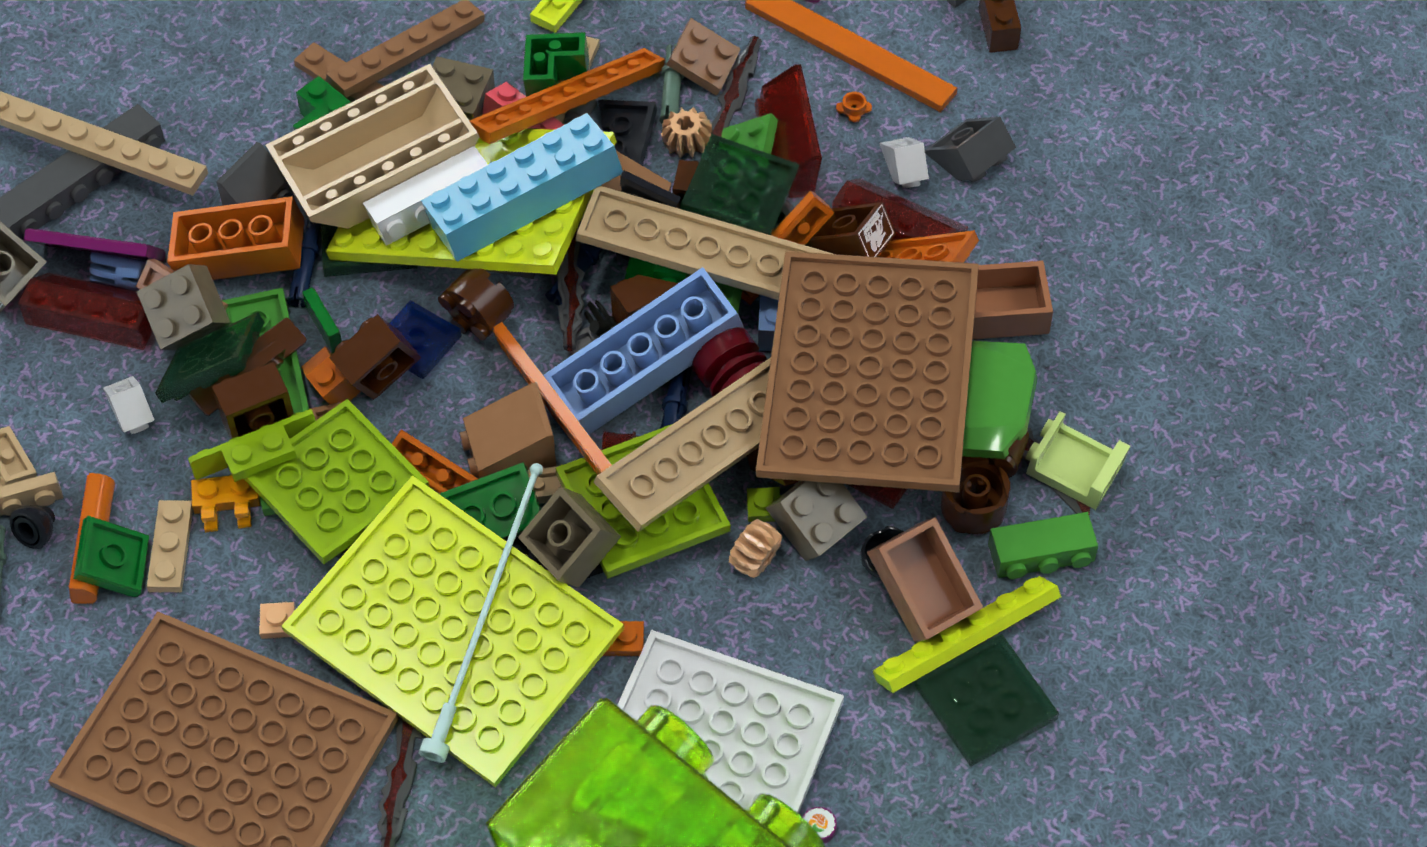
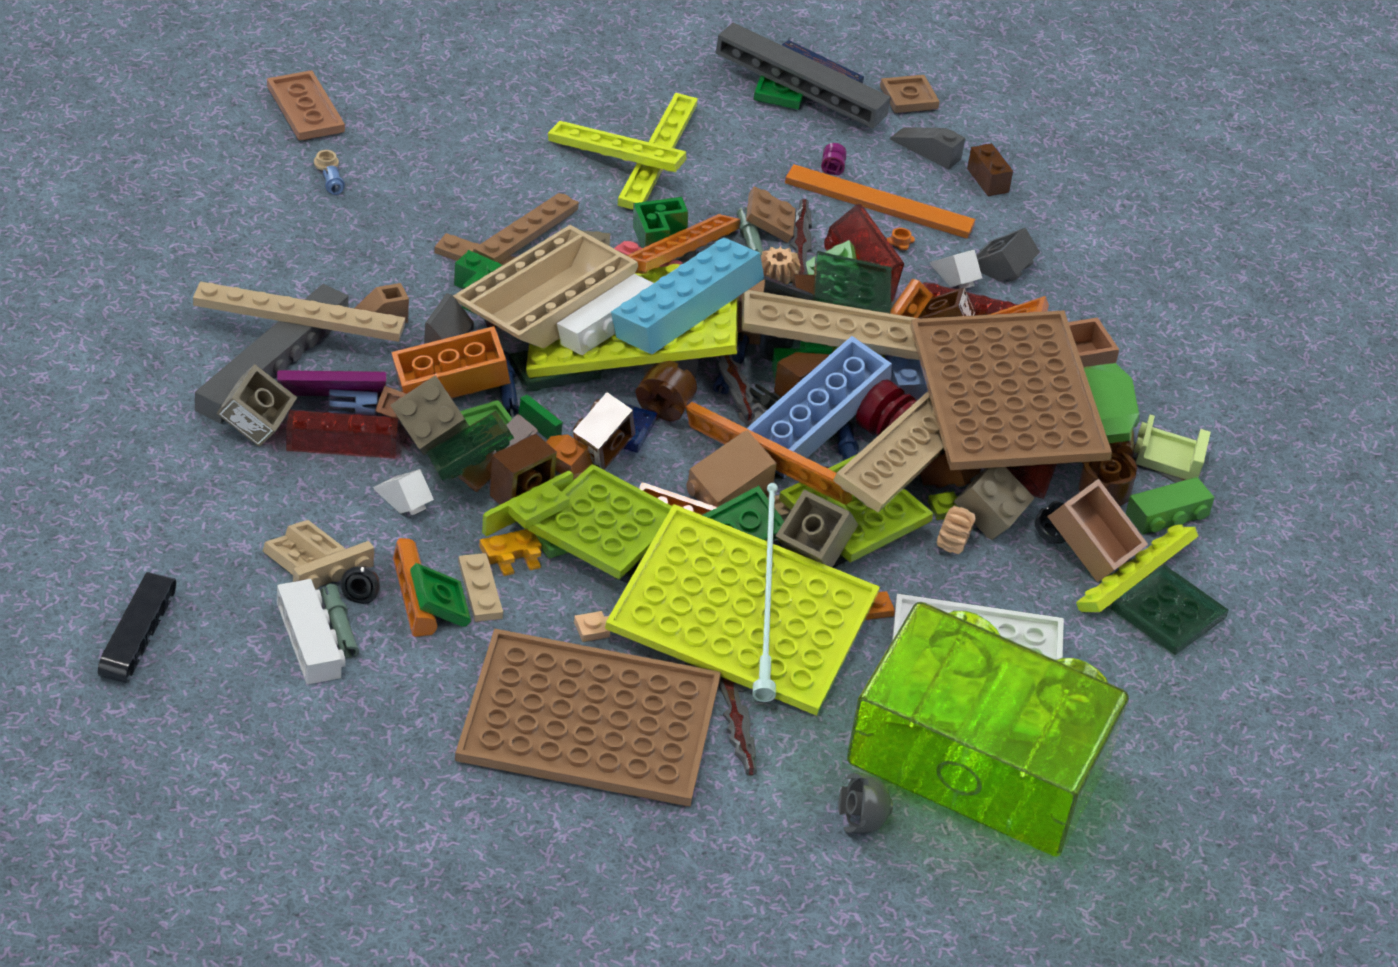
camera: 20 degrees left, 15 degrees down
(199, 141) = (387, 300): none -> medium nougat slope

